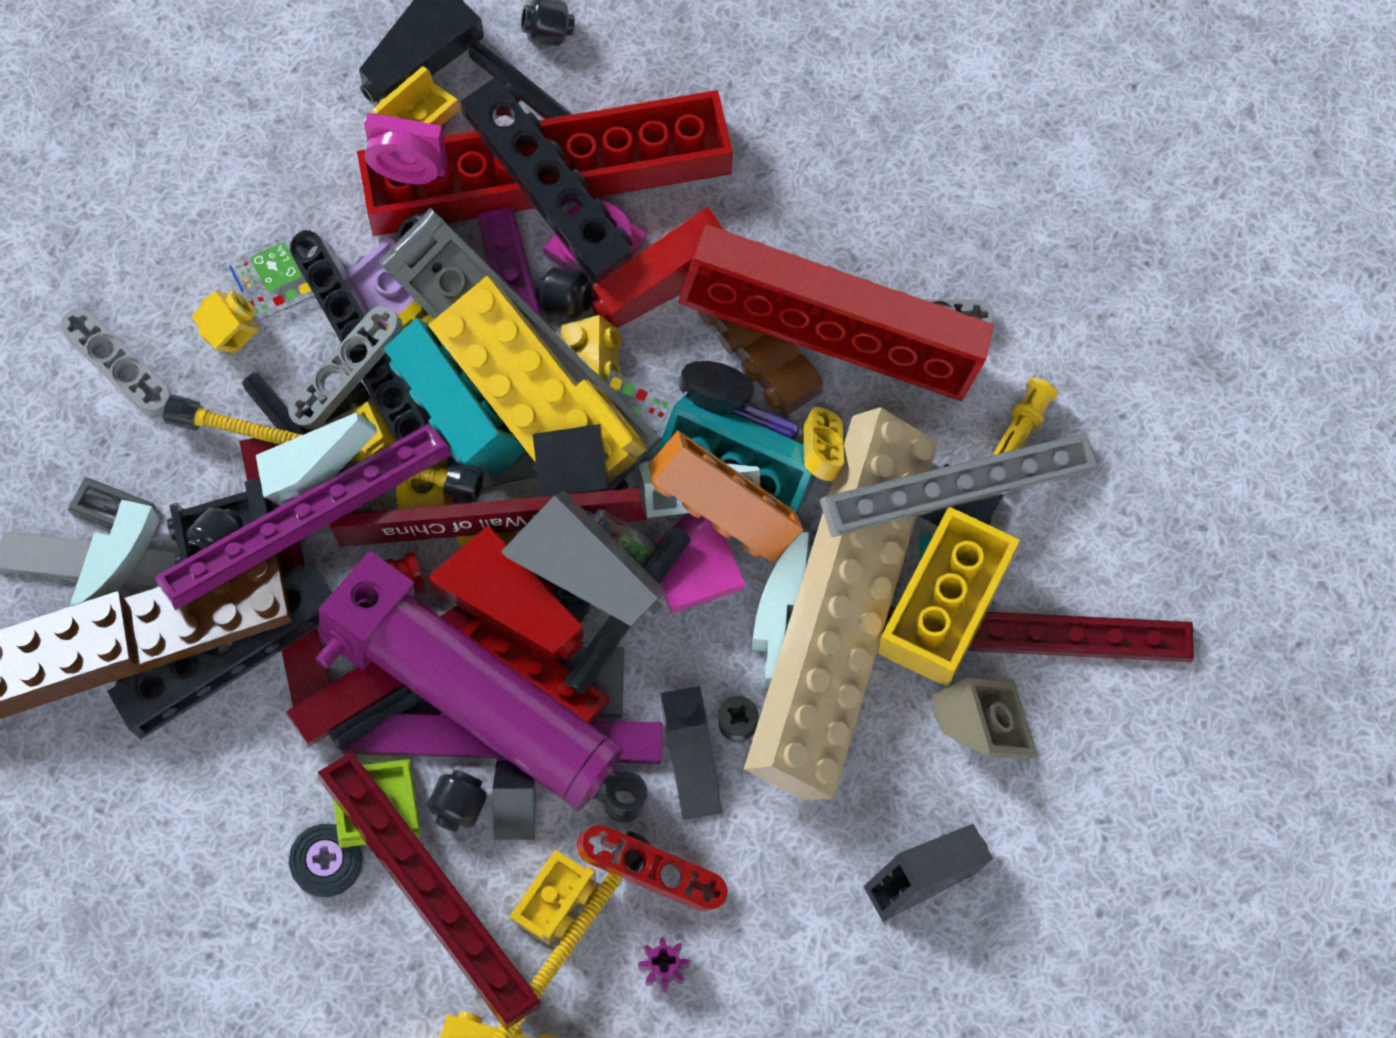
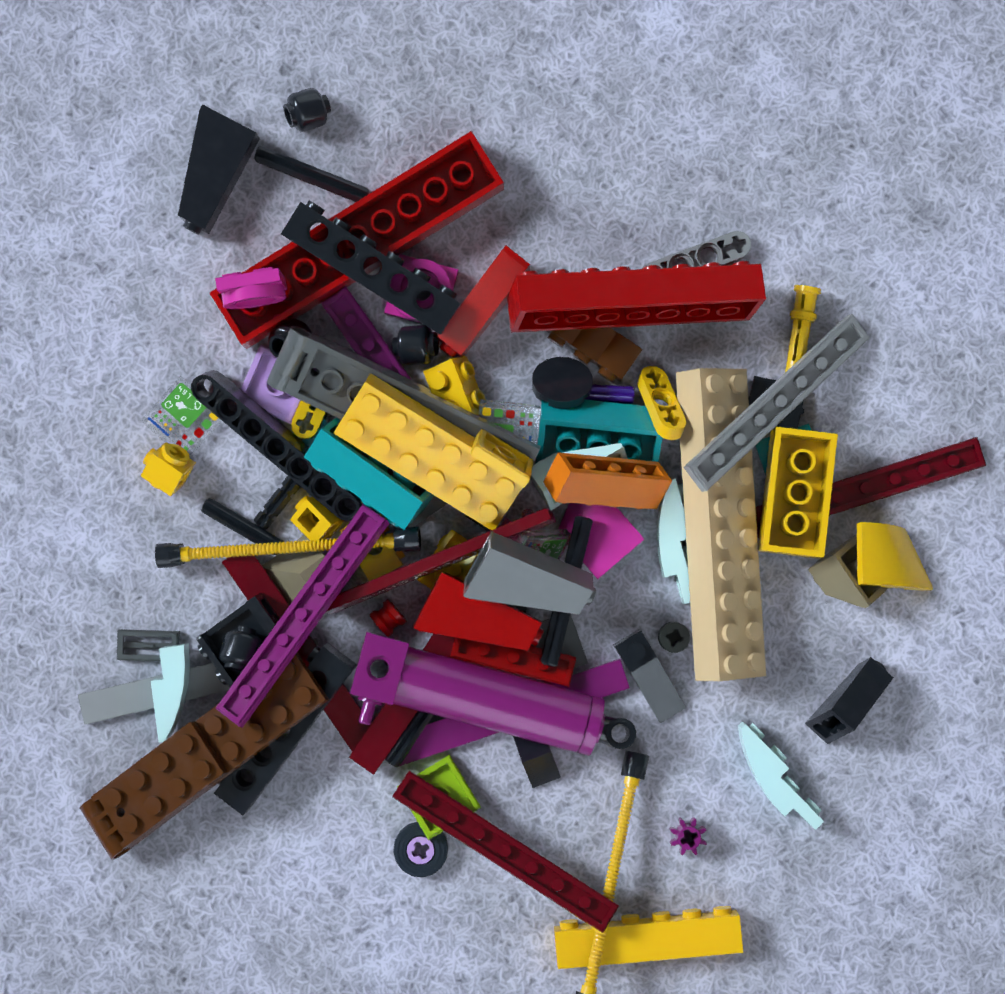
camera: 20 degrees left, 20 degrees up
(114, 364) = (96, 532): light grey beam -> none
(311, 458) = (286, 571): light aqua slope -> none
(340, 363) = (278, 478): light grey beam -> none
(419, 101) = (235, 231): yellow bracket -> none
(457, 800) = (497, 774): black head -> none
(554, 897) = (594, 817): yellow bracket -> none
(570, 460) = (485, 503): black piece -> none
(650, 874) = (656, 775): red beam -> none
(795, 917) = (767, 768): none -> light aqua slope
(1037, 714) = (888, 558): none -> yellow slope

